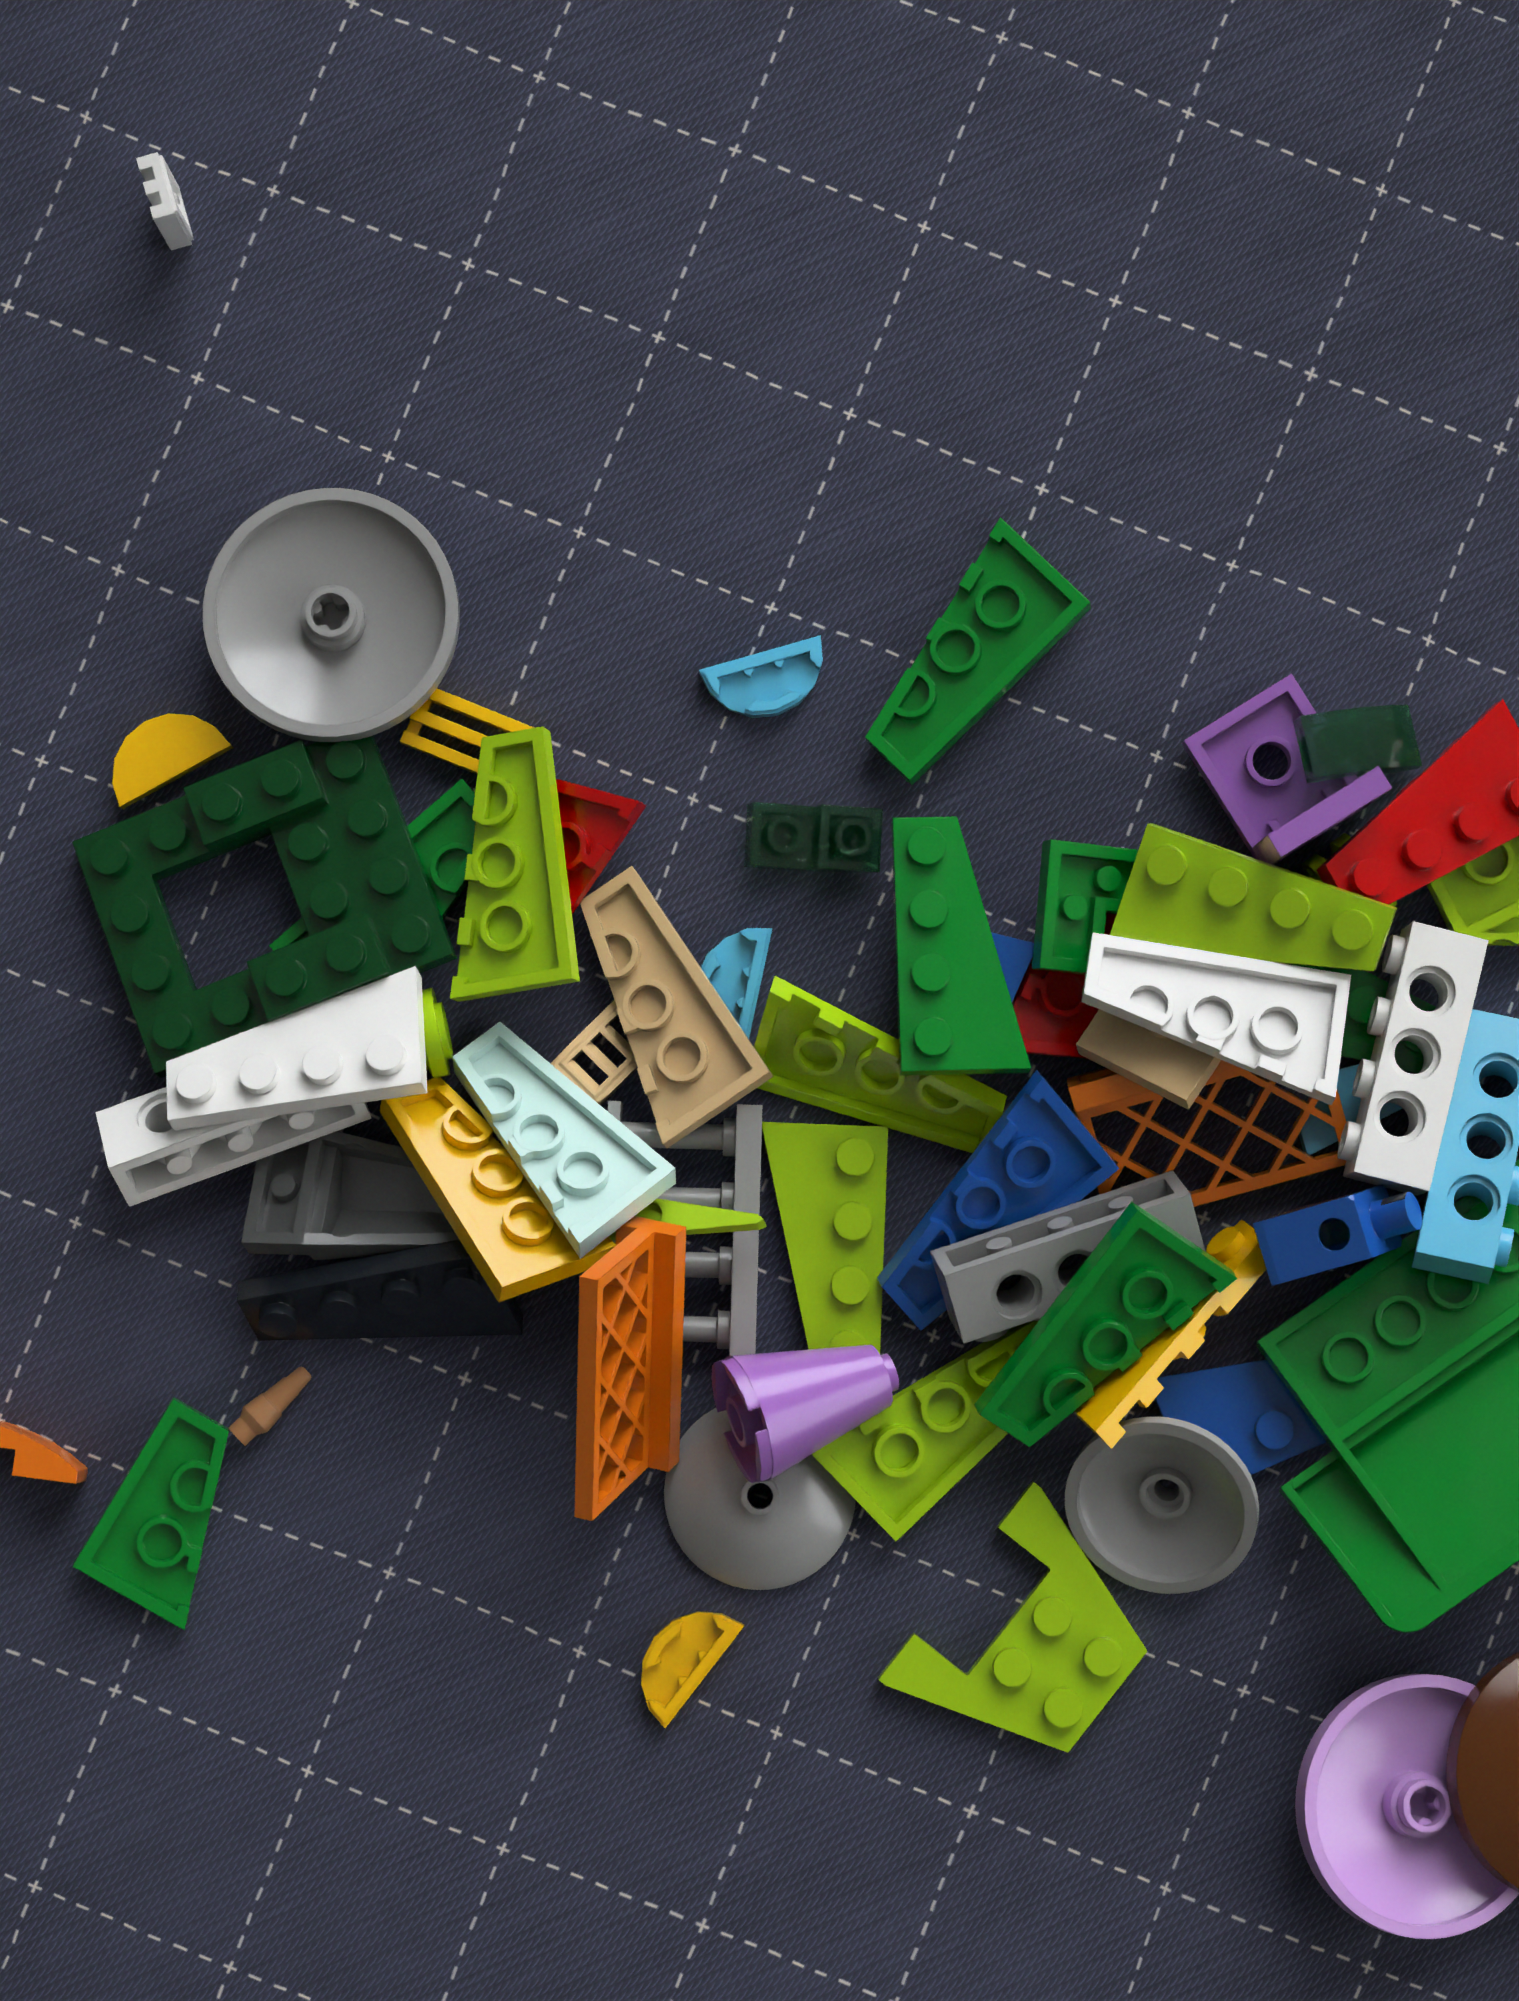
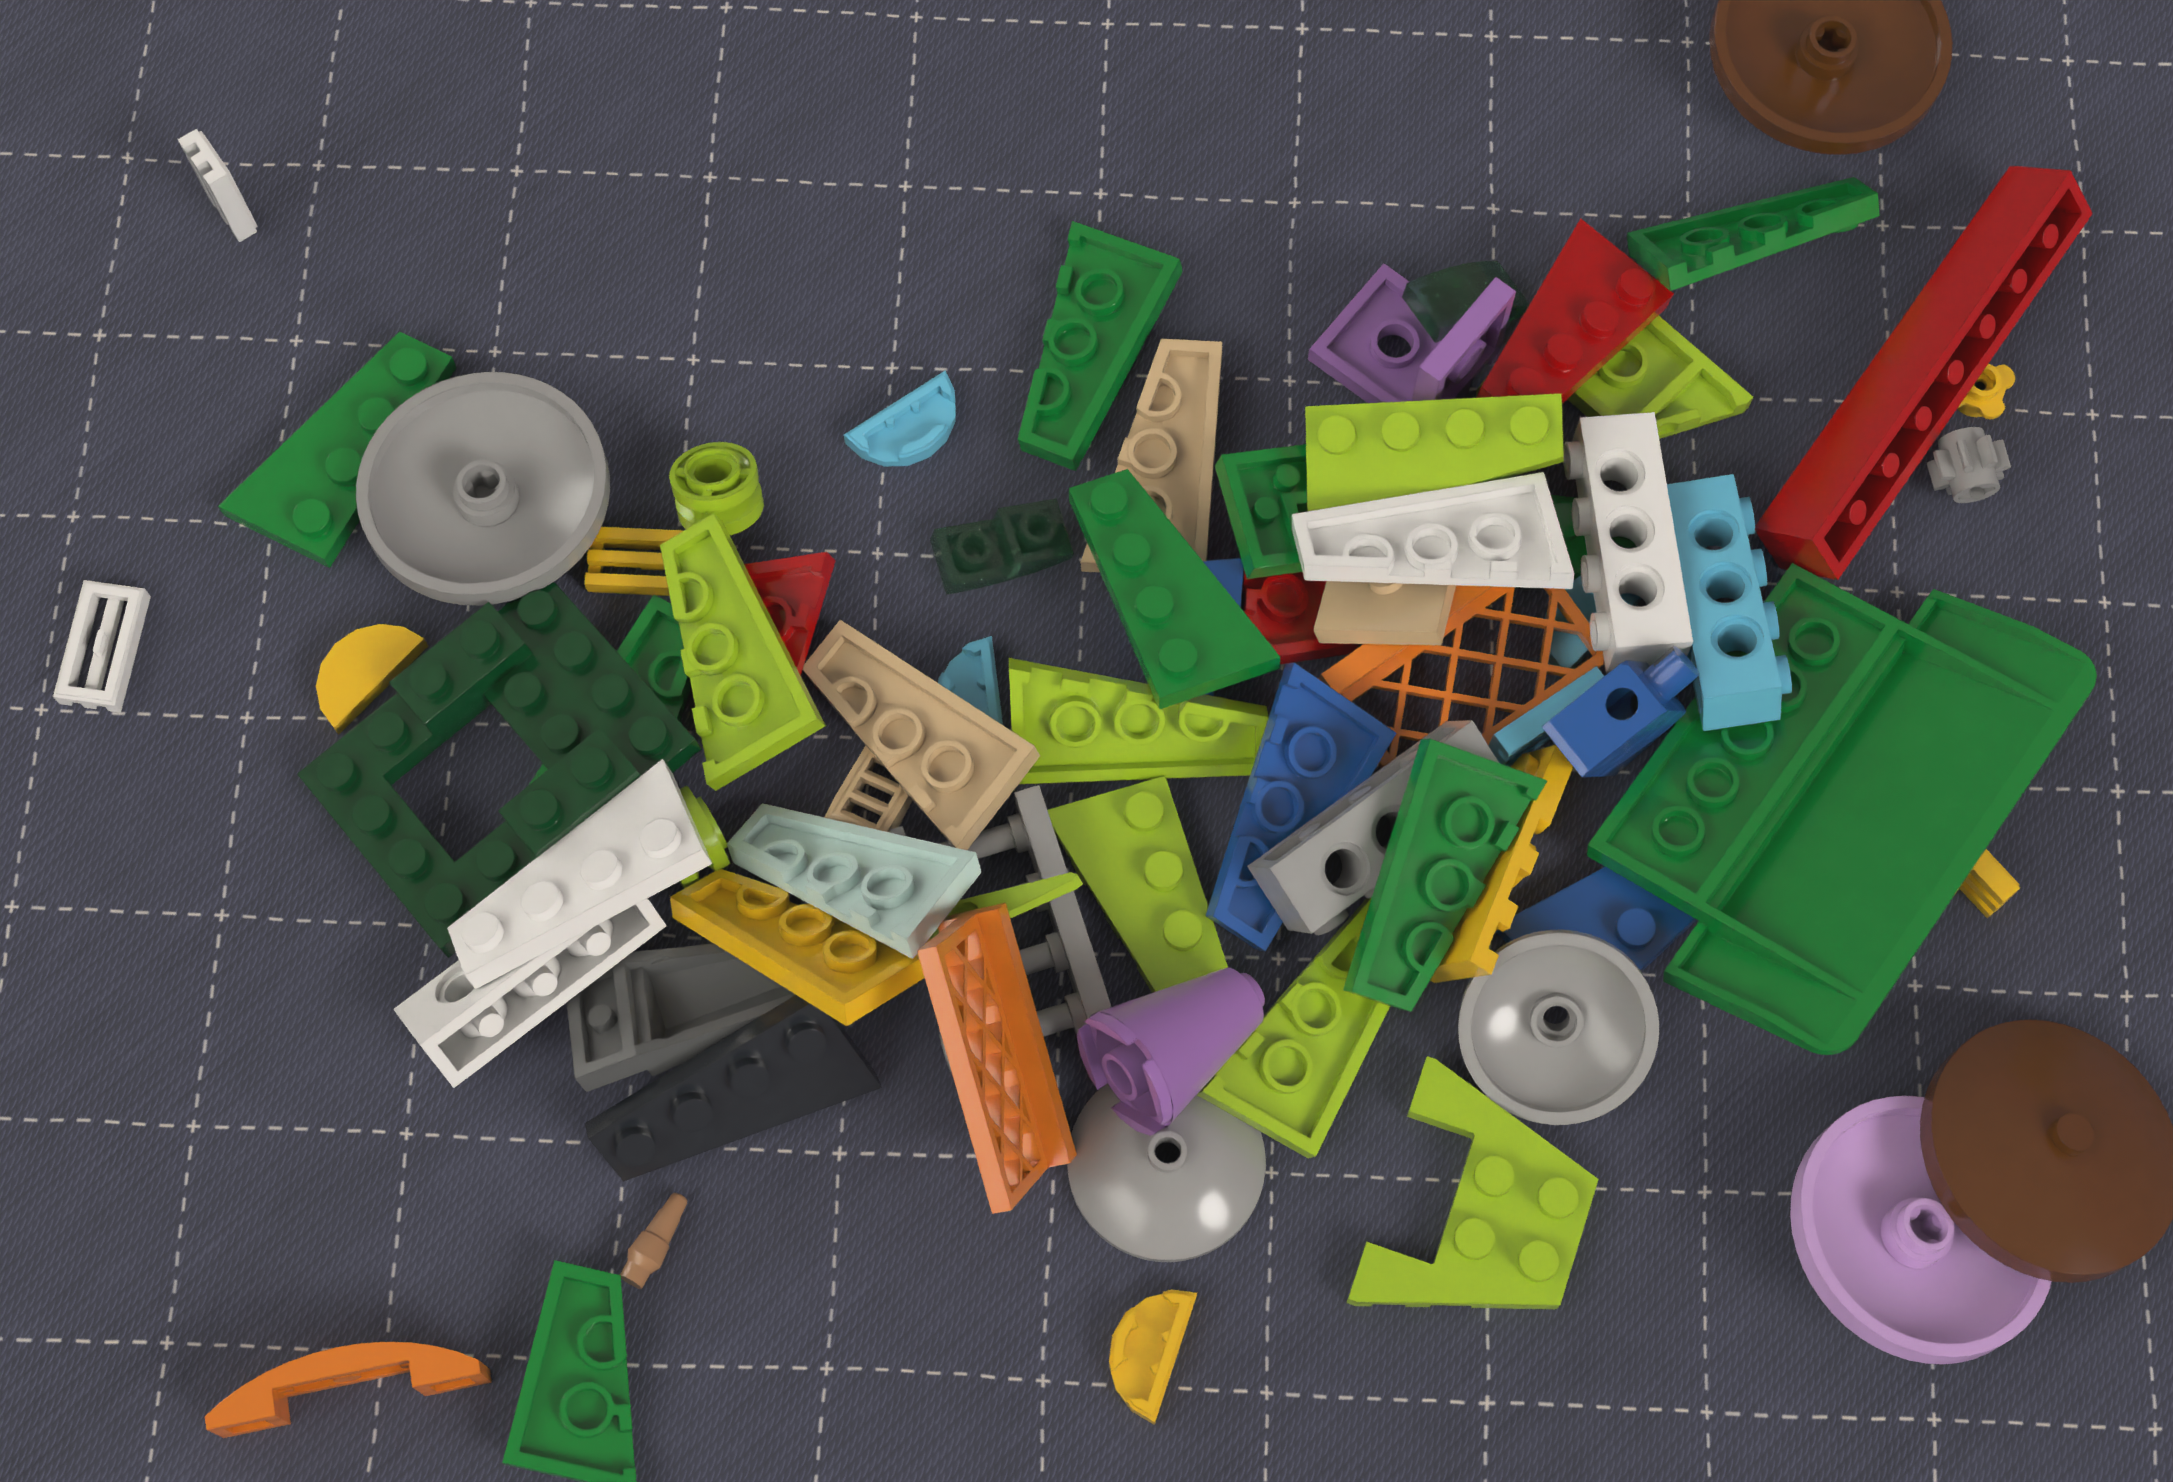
camera: 20 degrees left, 15 degrees down
(171, 538) = (309, 483): none -> green wing
(559, 667) = (719, 481): none -> lime wheel
(1015, 792) = (1175, 438): none -> tan wing
(1272, 1199) = (1527, 732): none -> medium azure tile

